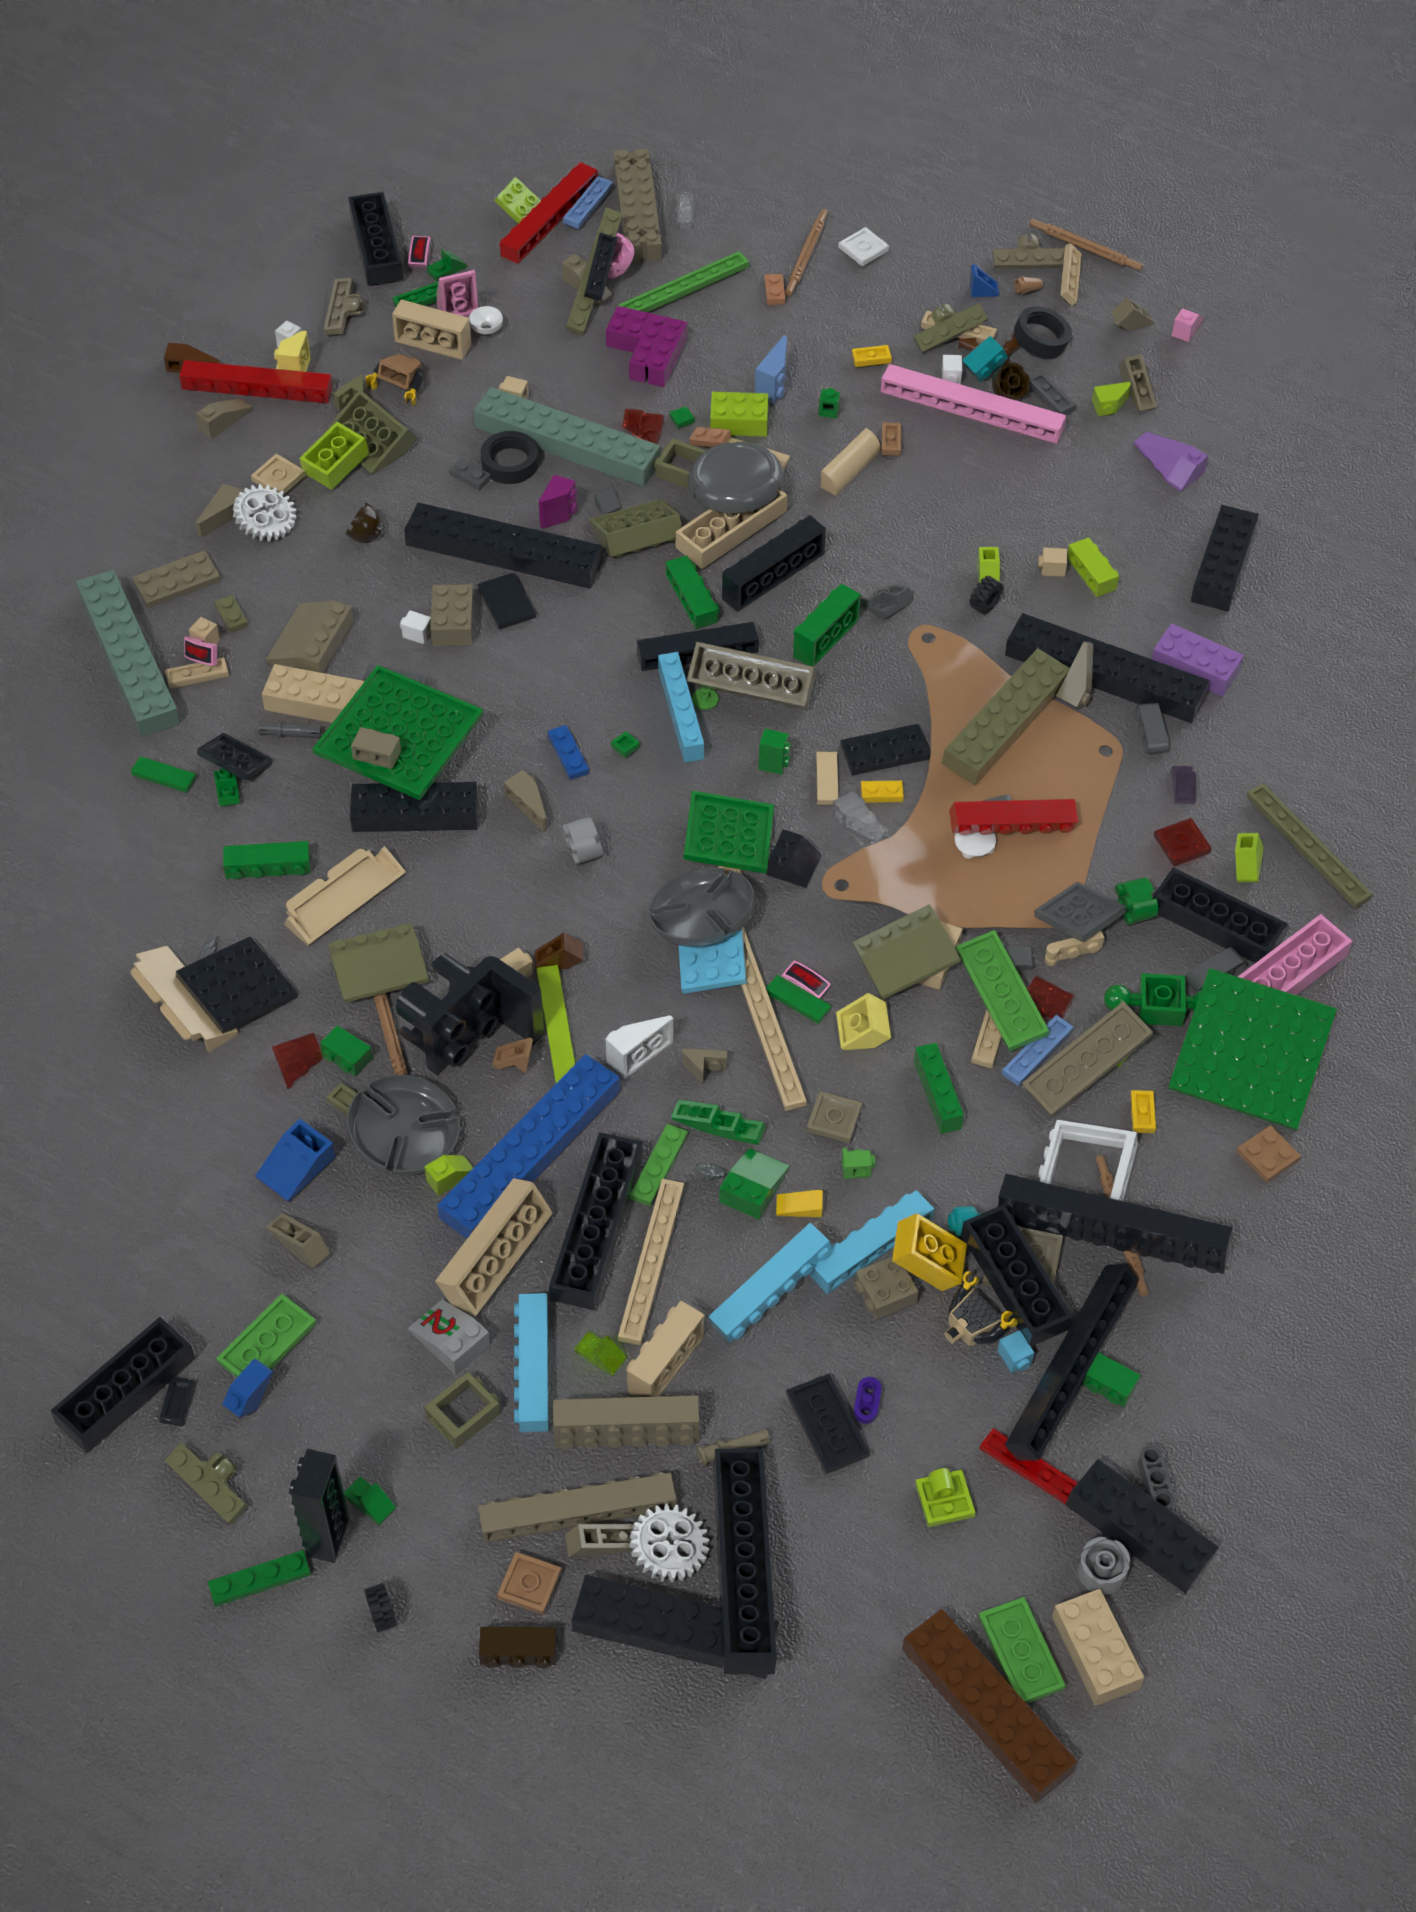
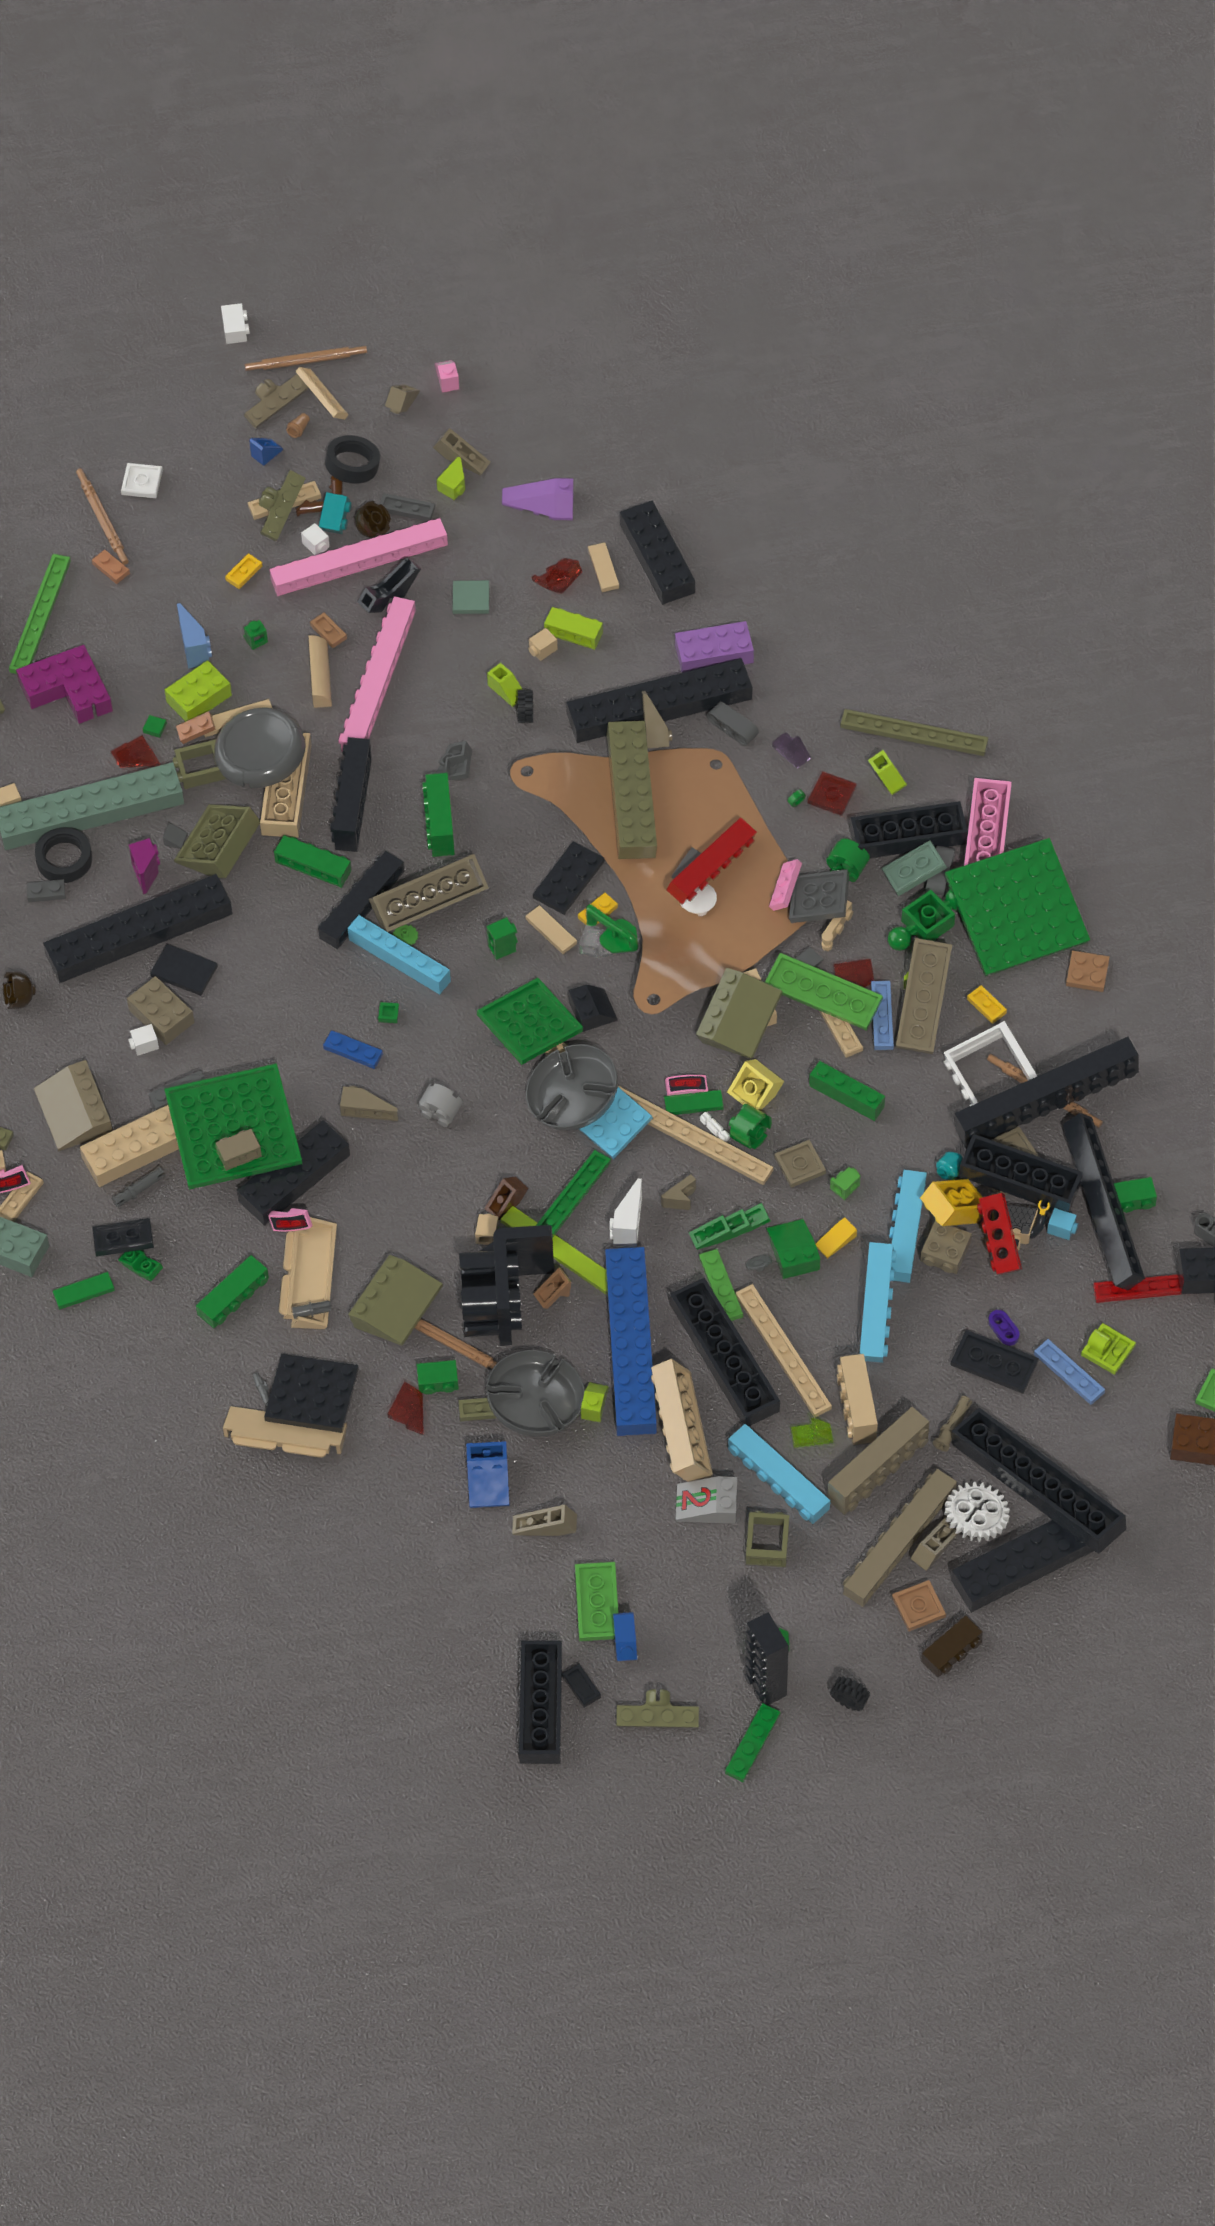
camera: 40 degrees left, 5 degrees up
(308, 919) = (311, 1309): none -> dark grey axle
(368, 839) = (292, 1221): none -> slope
(610, 993) = (575, 1191): none -> green plate
(794, 1032) = (714, 1126): none -> white axle
(819, 1051) = (749, 1126): none -> green brick
(870, 819) = (619, 935): none -> green piece
(887, 1489) = (1069, 1372): none -> medium blue plate
(898, 493) = (379, 670): none -> bright pink brick
(944, 1324) = (1012, 1261): none -> red brick
(976, 439) = (395, 584): none -> black arch
(1033, 491) = (471, 597): none -> sand green tile
(1054, 186) = (234, 324): none -> white brick
(1061, 882) = (785, 885): none -> bright pink plate
(1124, 523) = (559, 576): none -> clear red slope
(1146, 823) = (796, 798): none -> green tile
(1168, 541) = (603, 567): none -> tan tile
(1191, 950) = (914, 868): none -> sand green tile

